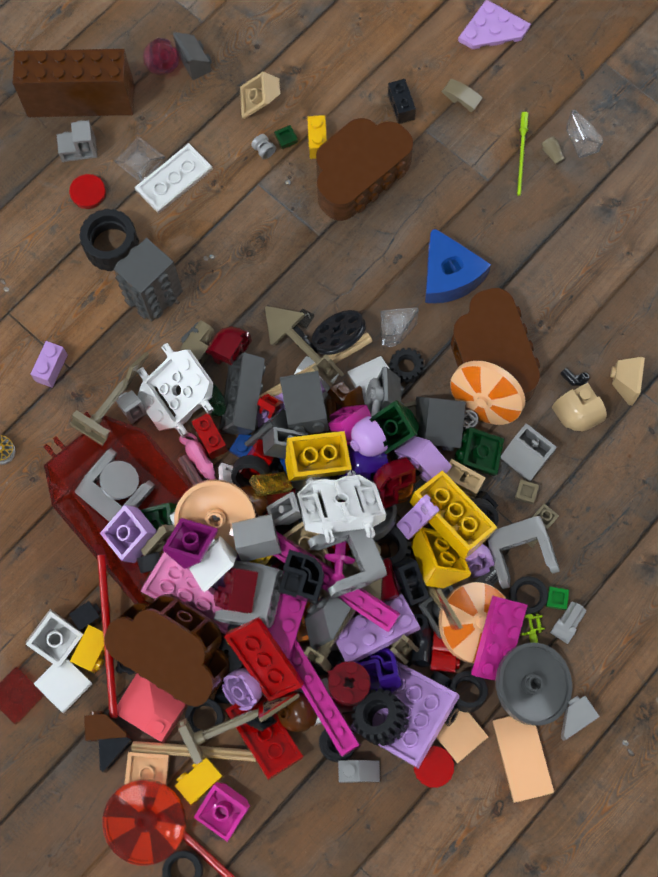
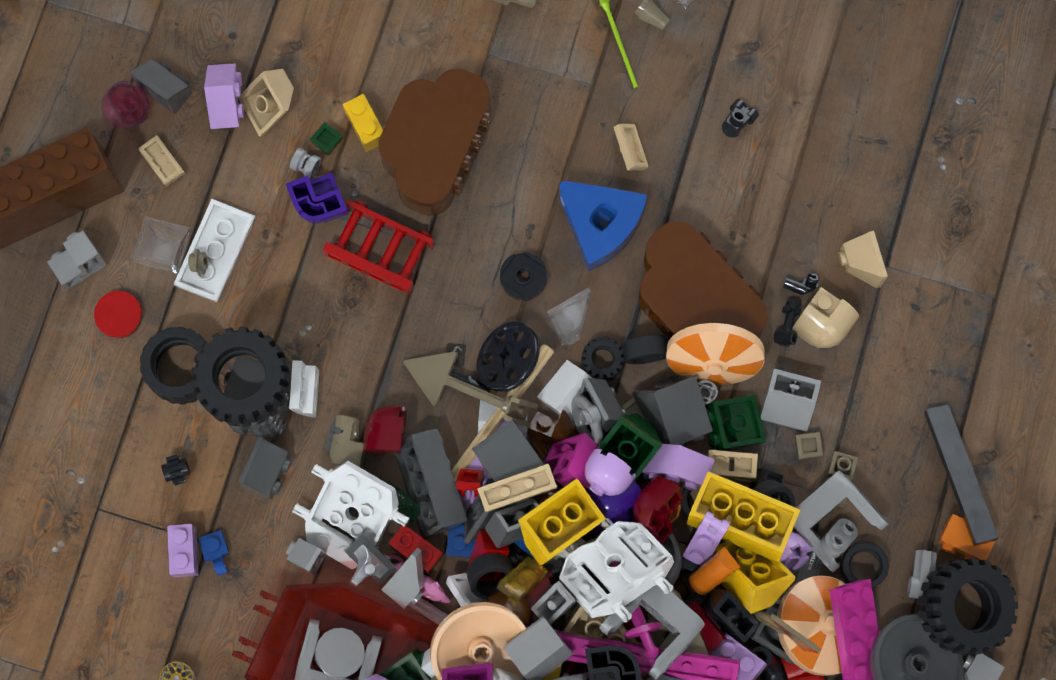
camera: 25 degrees left, 5 degrees up
(71, 374) = (215, 548): none -> blue plate
(72, 308) = (175, 469): none -> black gear
(91, 426) = (278, 606): dark tan piece -> none
(132, 333) = (265, 469): none -> dark grey slope
(133, 228) = (222, 350): none -> black tyre
(157, 178) = (198, 262): none -> dark tan plate
(167, 104) = (161, 161): none -> tan plate
(171, 427) = (370, 561): none -> piece
(186, 292) = (304, 389): none -> white slope
(191, 451) = (407, 581): none -> light grey slope
(227, 78) = (222, 95): none -> lavender brick
(259, 172) = (317, 199): none -> dark purple brick
(279, 239) = (380, 270): none -> red fence
(297, 417) = (517, 488): none -> tan plate
(373, 295) = (520, 263): none -> black plate
(401, 101) = (444, 32): black brick -> none
(412, 544) = (713, 572): none -> orange brick
(438, 370) = (645, 349): none -> black tyre
(495, 231) = (631, 147): none -> tan plate
(517, 566) = (838, 538): none -> light grey plate
(532, 632) = (890, 609): lime piece -> none
(547, 407) = (788, 336): none -> black bar
(557, 598) = (898, 553): green plate -> none
(582, 244) = (738, 118): none -> black plate
(613, 611) = (957, 539): none -> orange brick
(616, 658) = (996, 606): none -> black tyre
(630, 562) = (961, 475): none -> black tile

